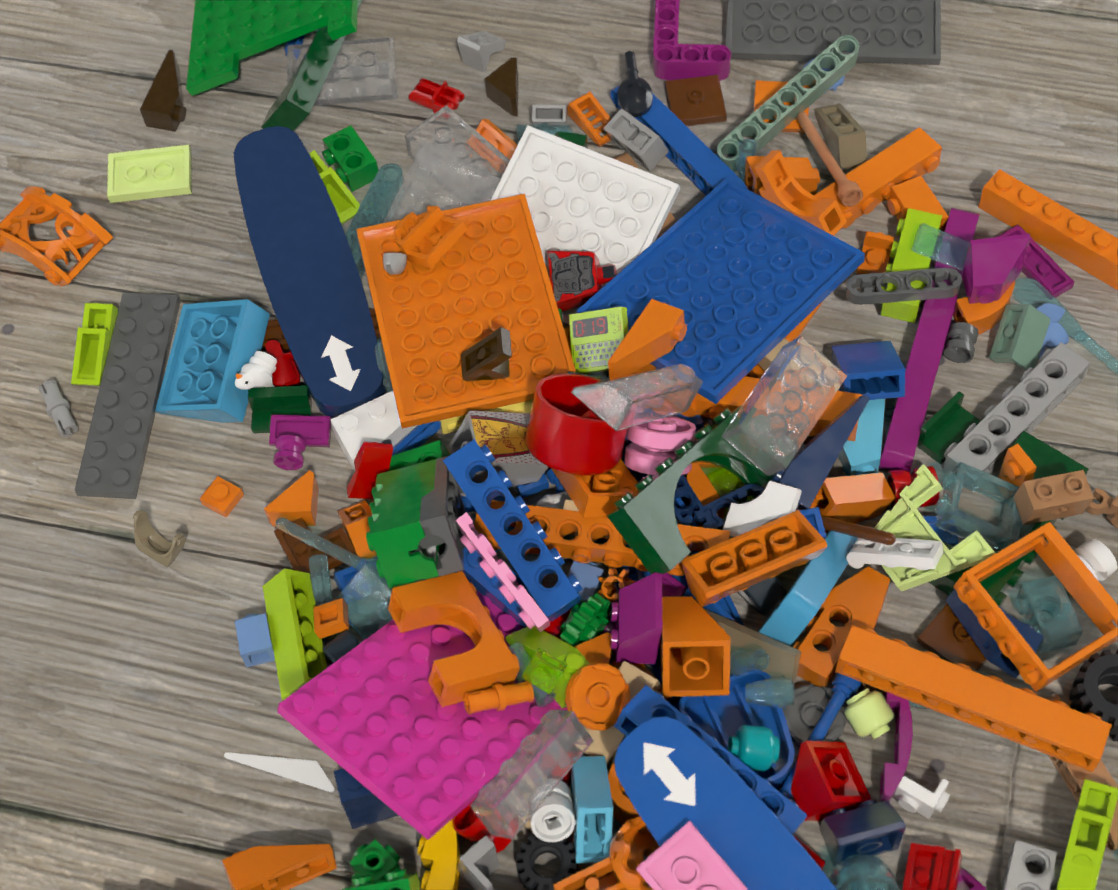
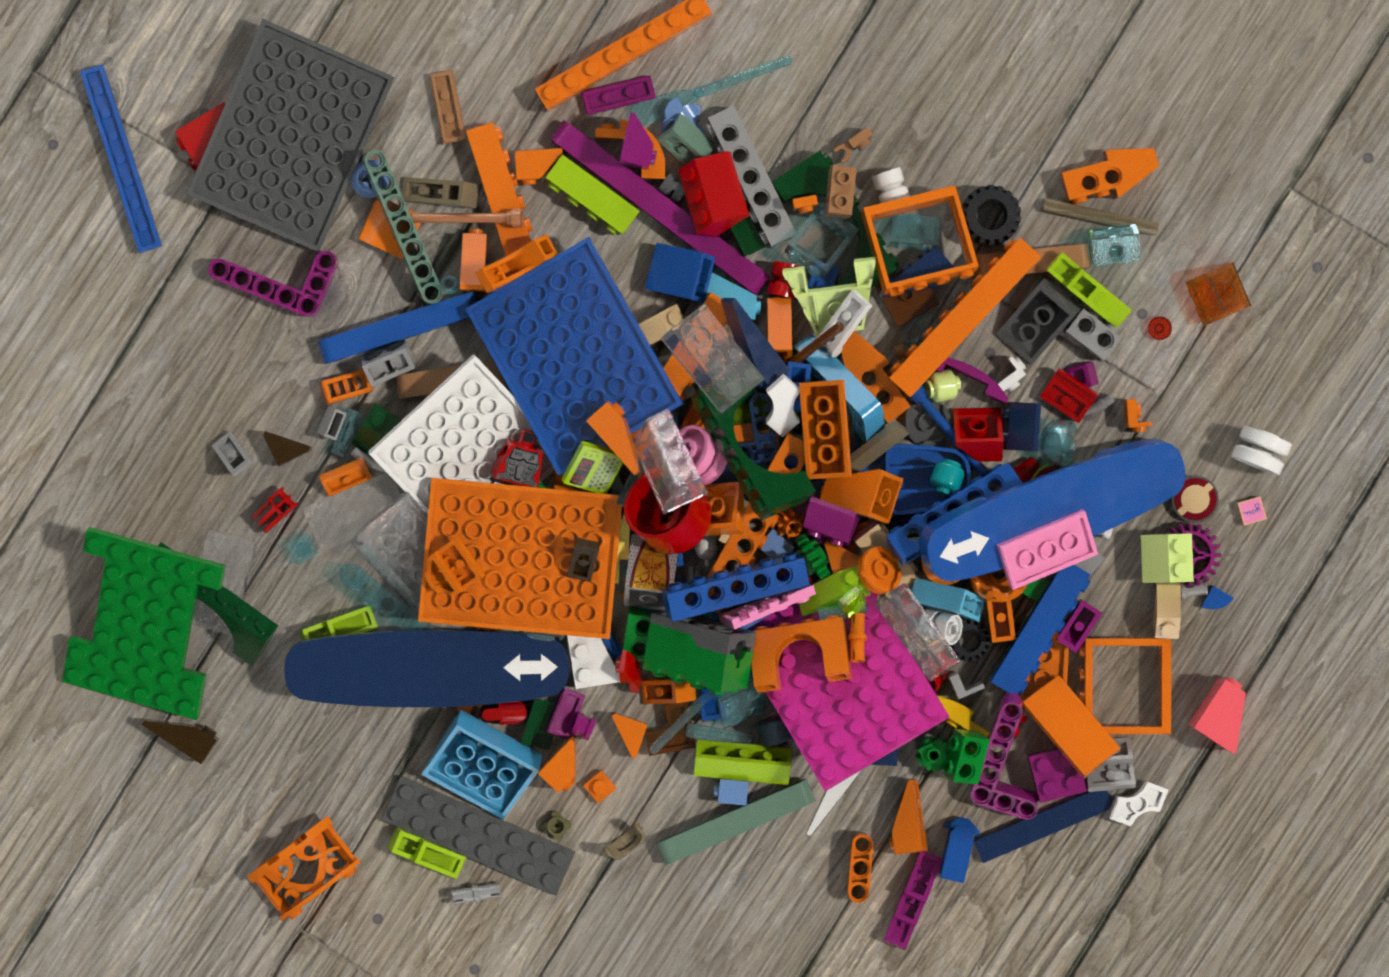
camera: 75 degrees left, 30 degrees up
(149, 173) = (265, 771): yellowish green plate -> none
(158, 459) = (563, 825): none -> olive plate
(180, 822) = (860, 878): none -> orange beam
(217, 657) = (735, 821): none -> sand green beam
(234, 437) = (561, 767): none -> orange slope
(257, 372) = (515, 734): white animal -> none
(331, 618) = (743, 734): orange plate -> none
(350, 158) = (312, 595): green brick -> none
(394, 262) = (467, 601): light grey hinge -> none
(396, 133) = (302, 548): none -> clear light blue plate
(634, 92) = (340, 346): black piece -> none
(696, 100) = (356, 294): reddish brown plate -> none
(743, 662) = (884, 458): clear light blue pin -> none
(771, 692) = (912, 449): clear light blue cone -> none
(877, 253) = (569, 216): orange bracket -> none
(904, 290) = (618, 215): dark grey beam -> none
(936, 115) = (448, 107): none -> medium nougat tile
(940, 246) = (593, 167): clear light blue slope -> none
(976, 368) = (713, 193): none -> red slope
(1012, 805) = (1039, 320): none -> dark grey slope

